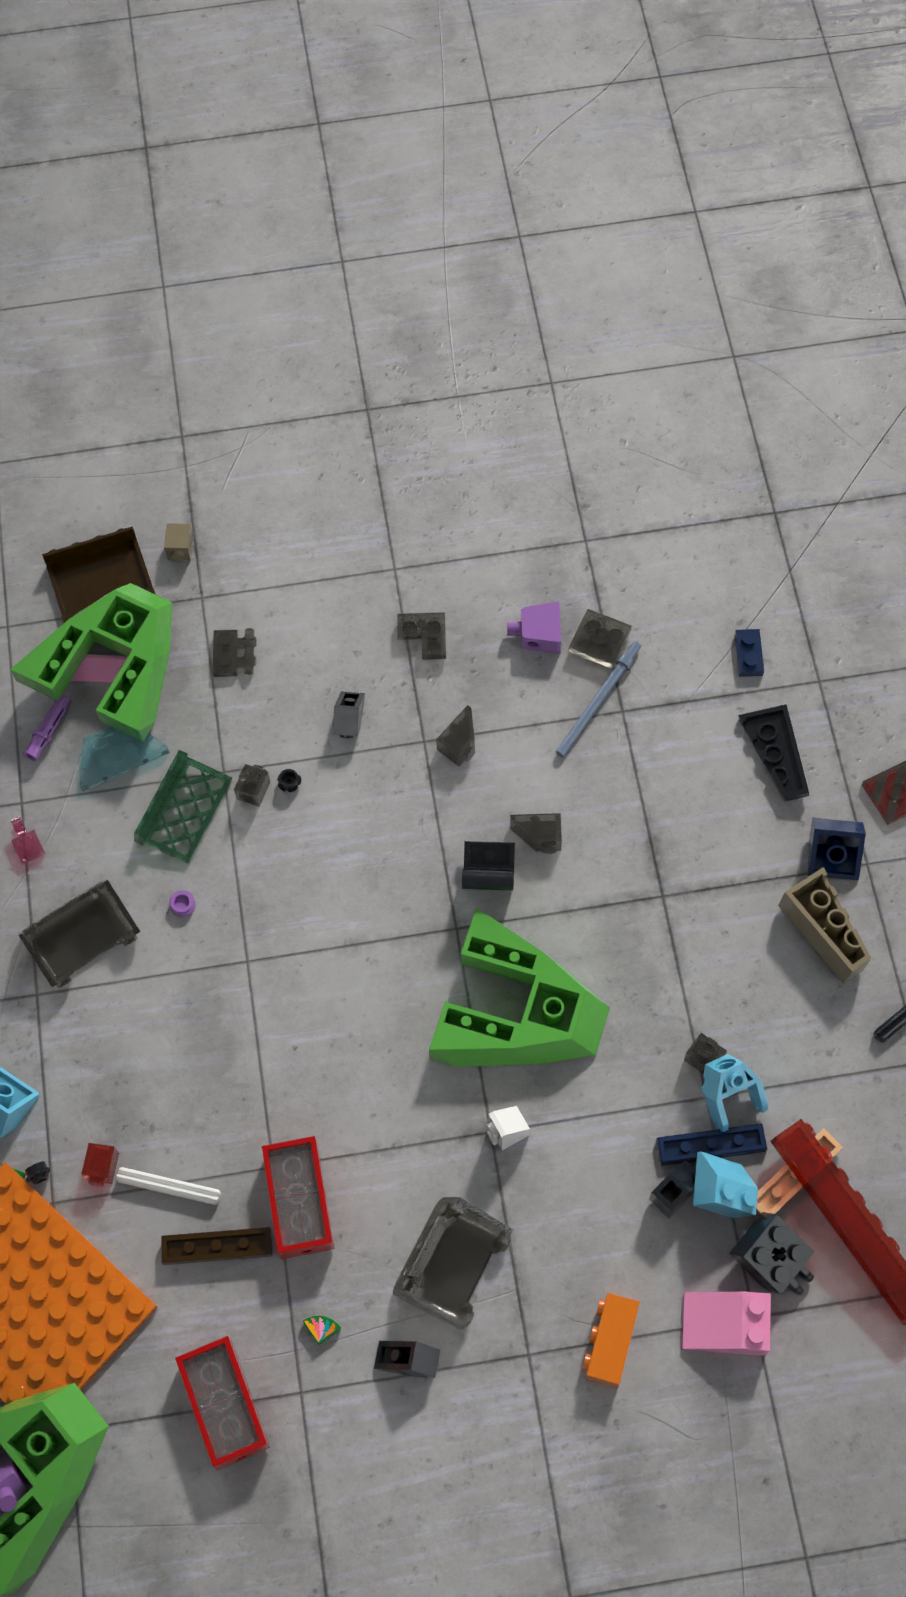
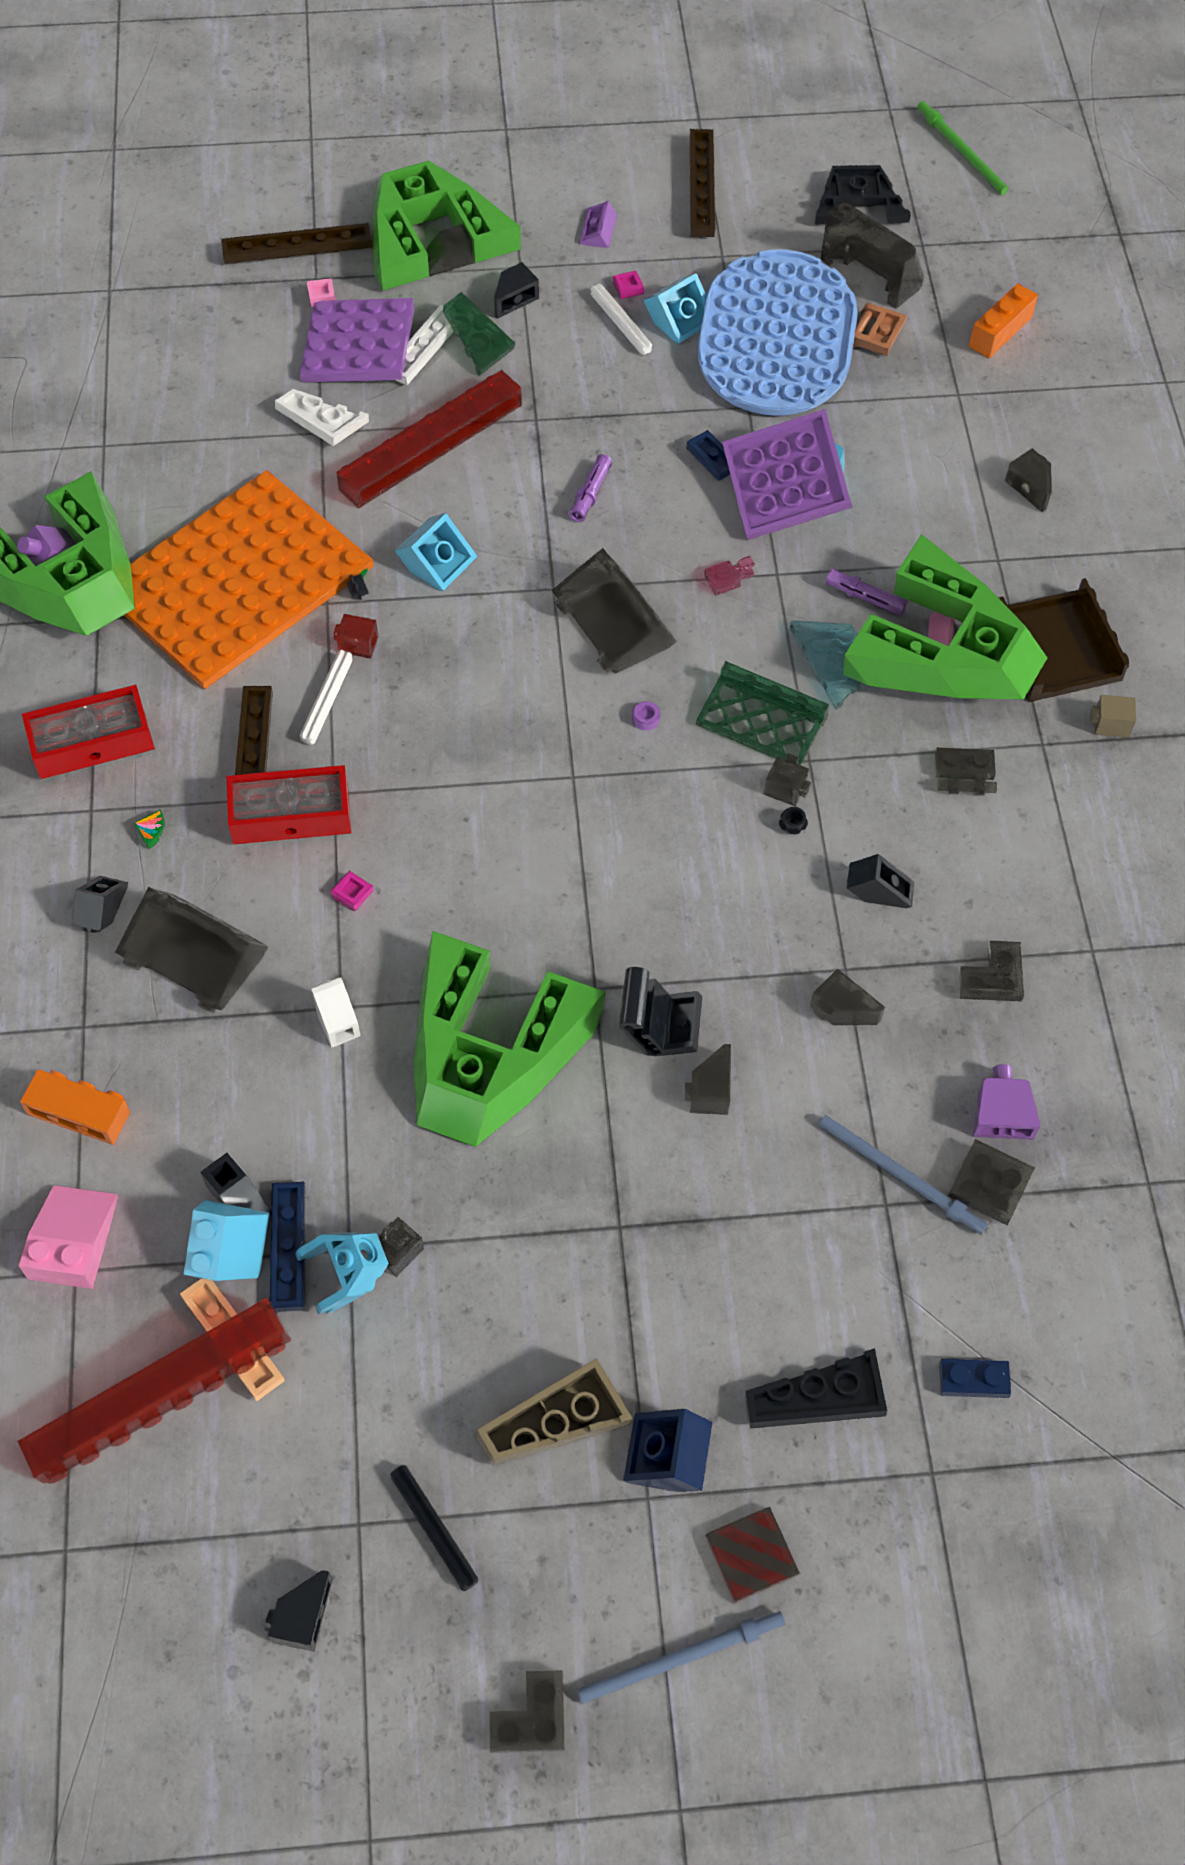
camera: 90 degrees right, 5 degrees down
(377, 1136) = (352, 891): none -> dark pink tile
(773, 1254) = (133, 1291): black hinge -> none

